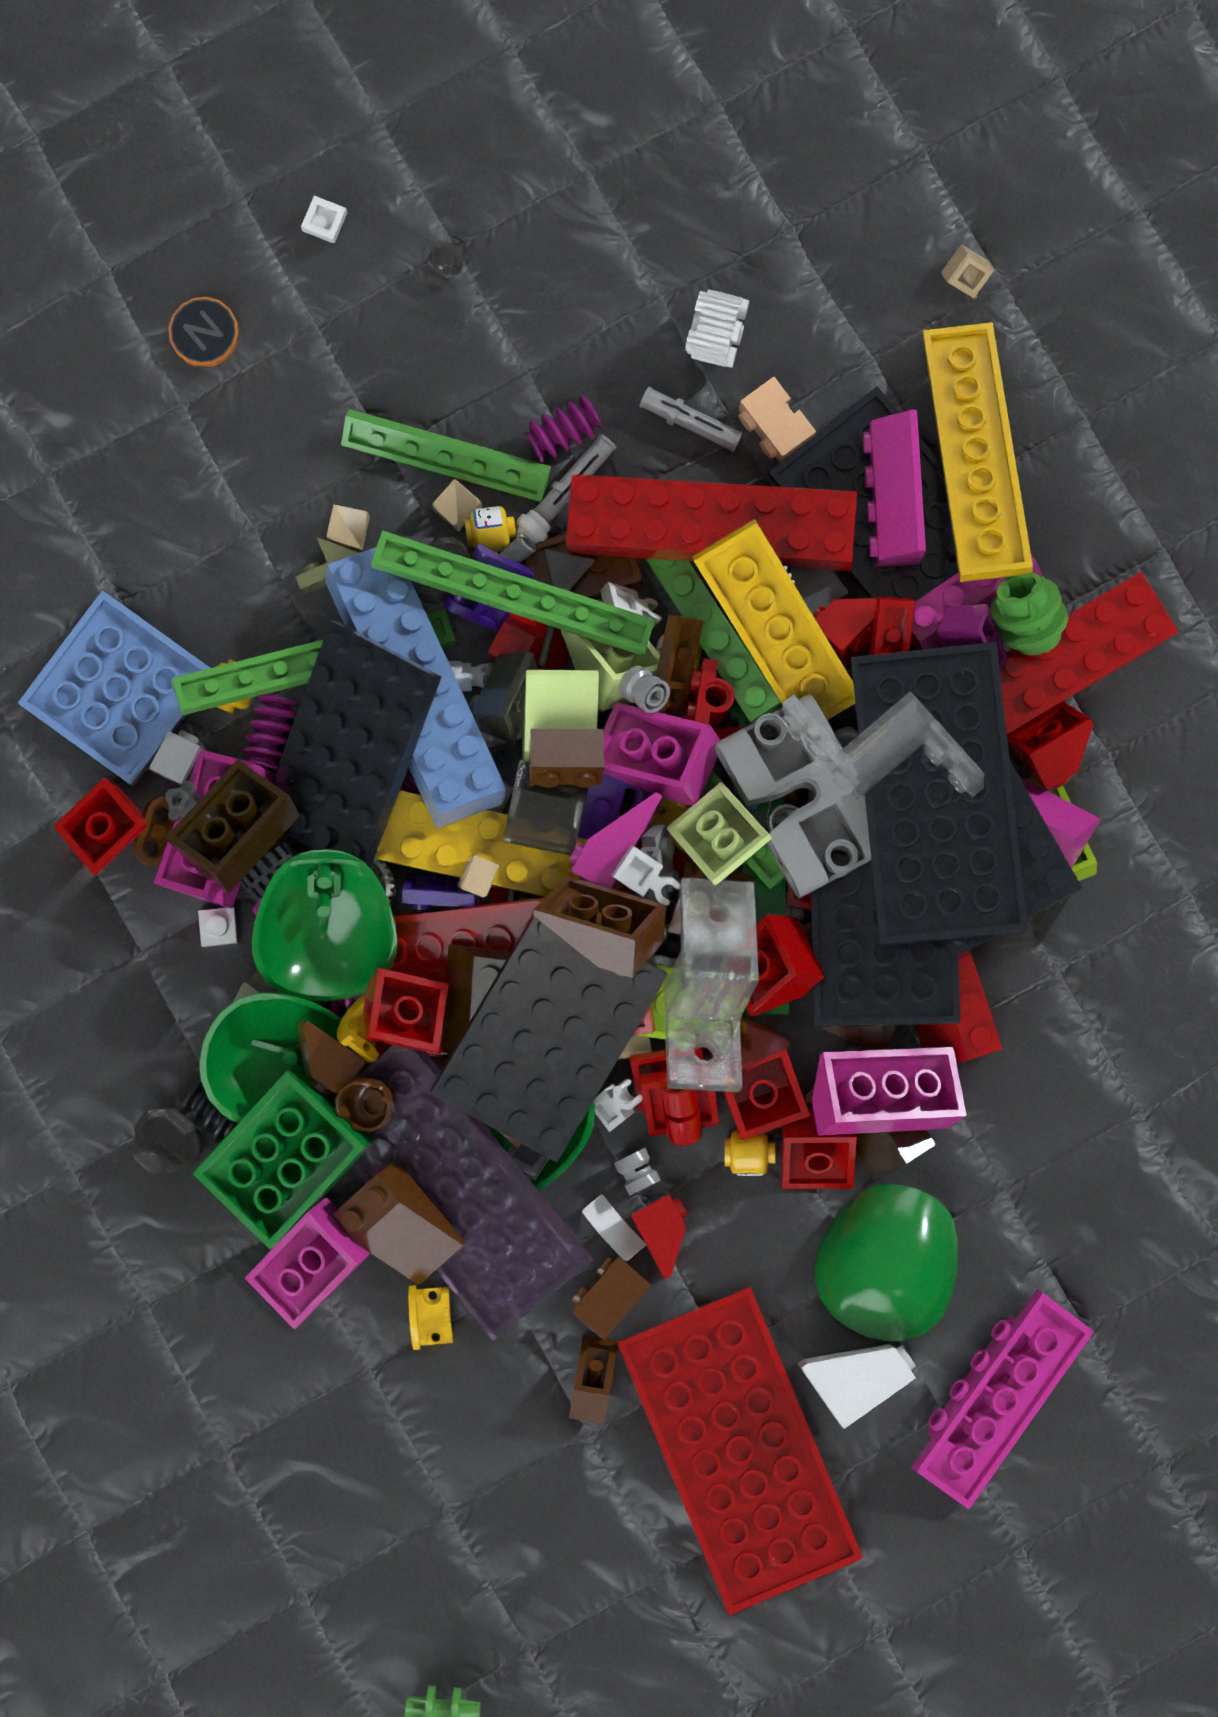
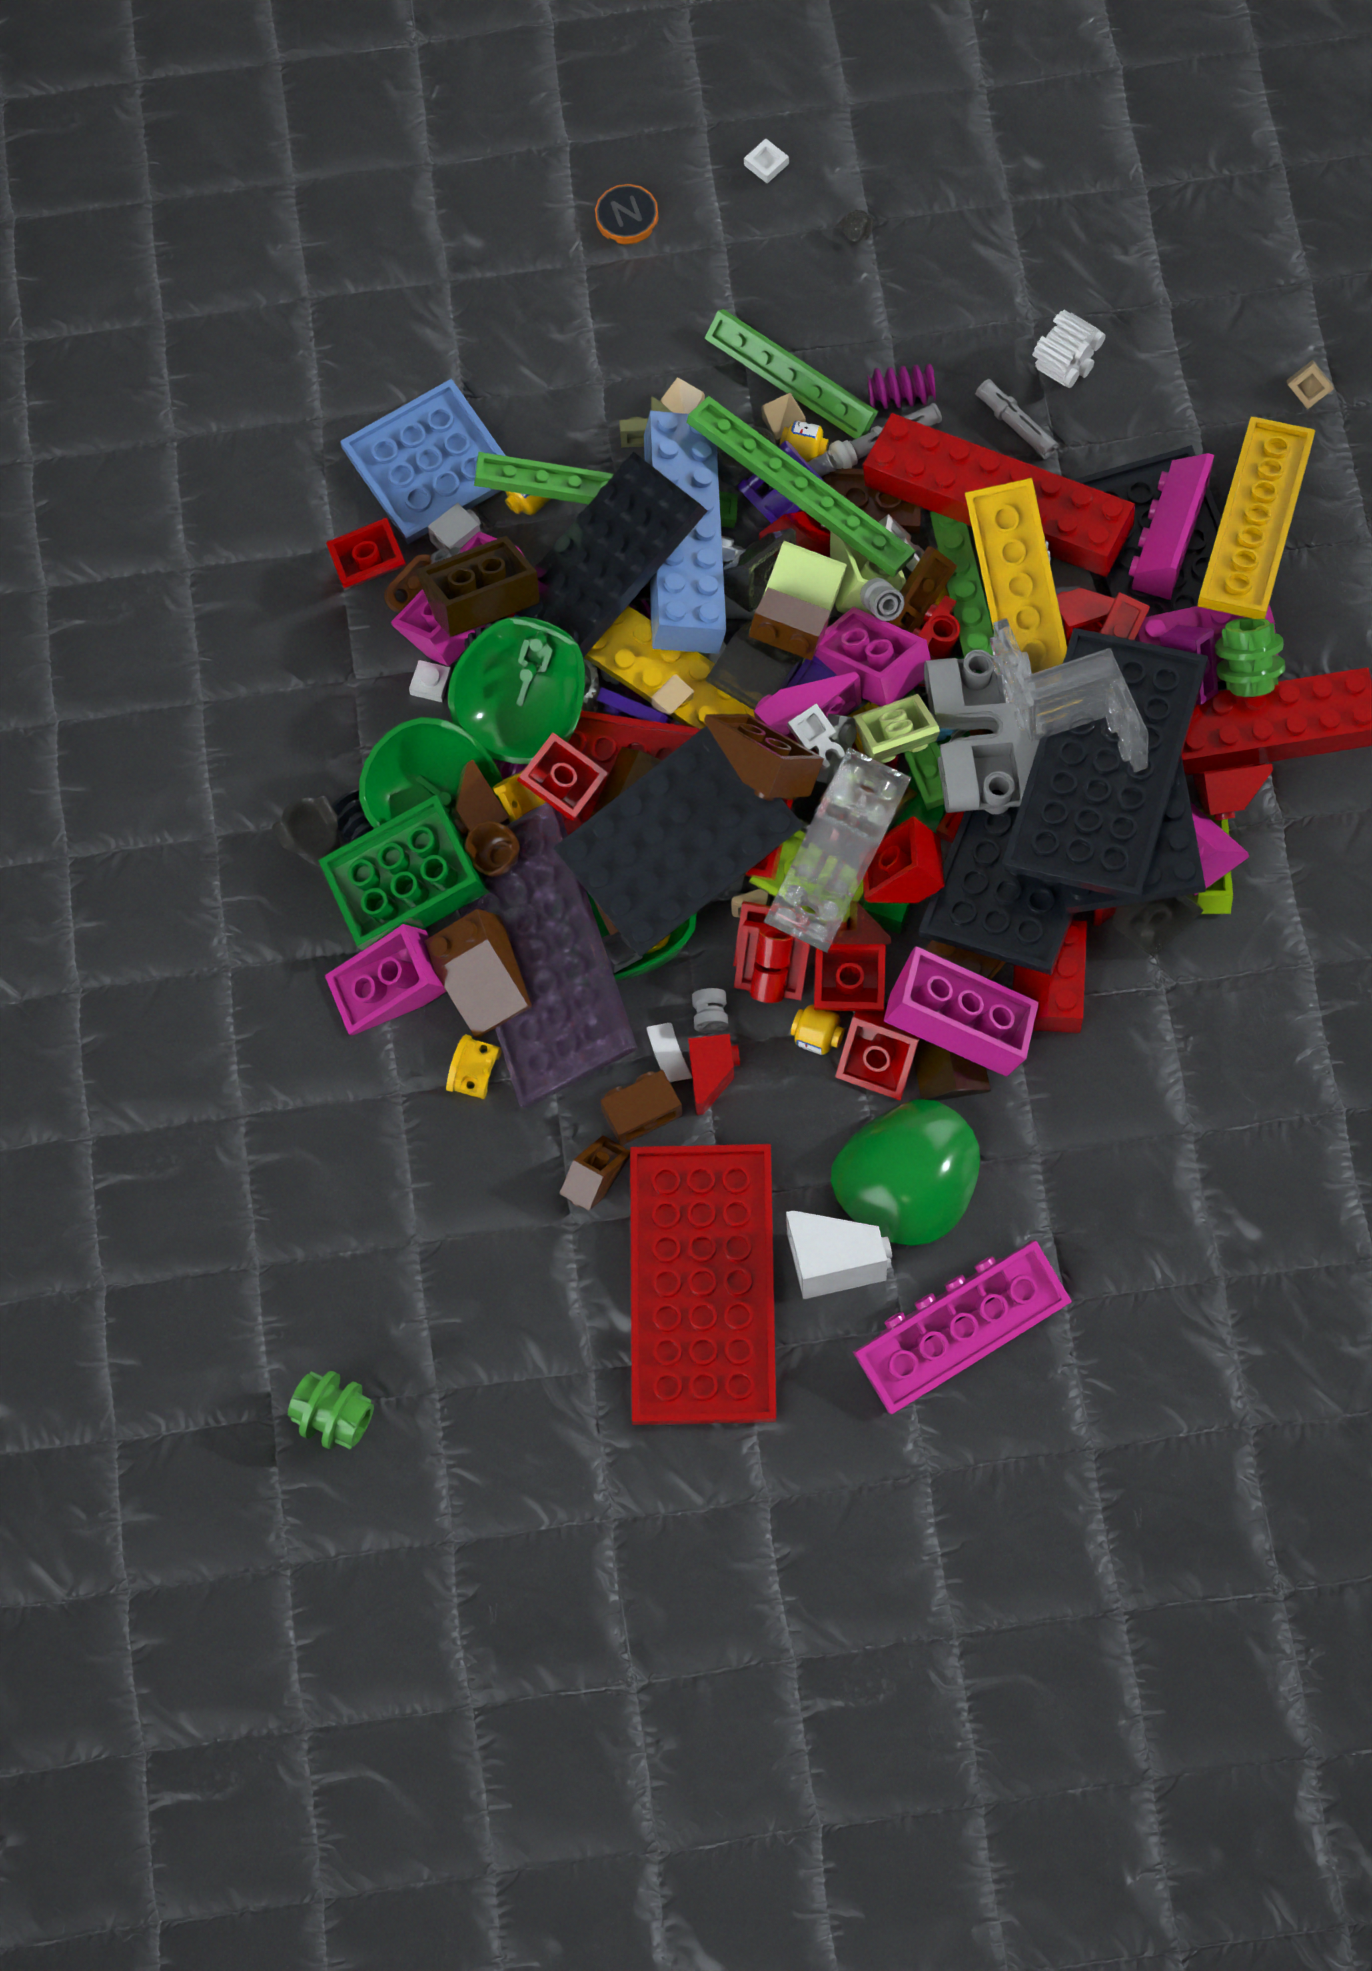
camera: 25 degrees right, 15 degrees down
(269, 730) = (544, 531): magenta piece -> none
(565, 573) = (857, 494): dark grey piece -> none
(615, 1104) = (712, 944): white plate -> none
(773, 420) = (1088, 442): light nougat brick -> none

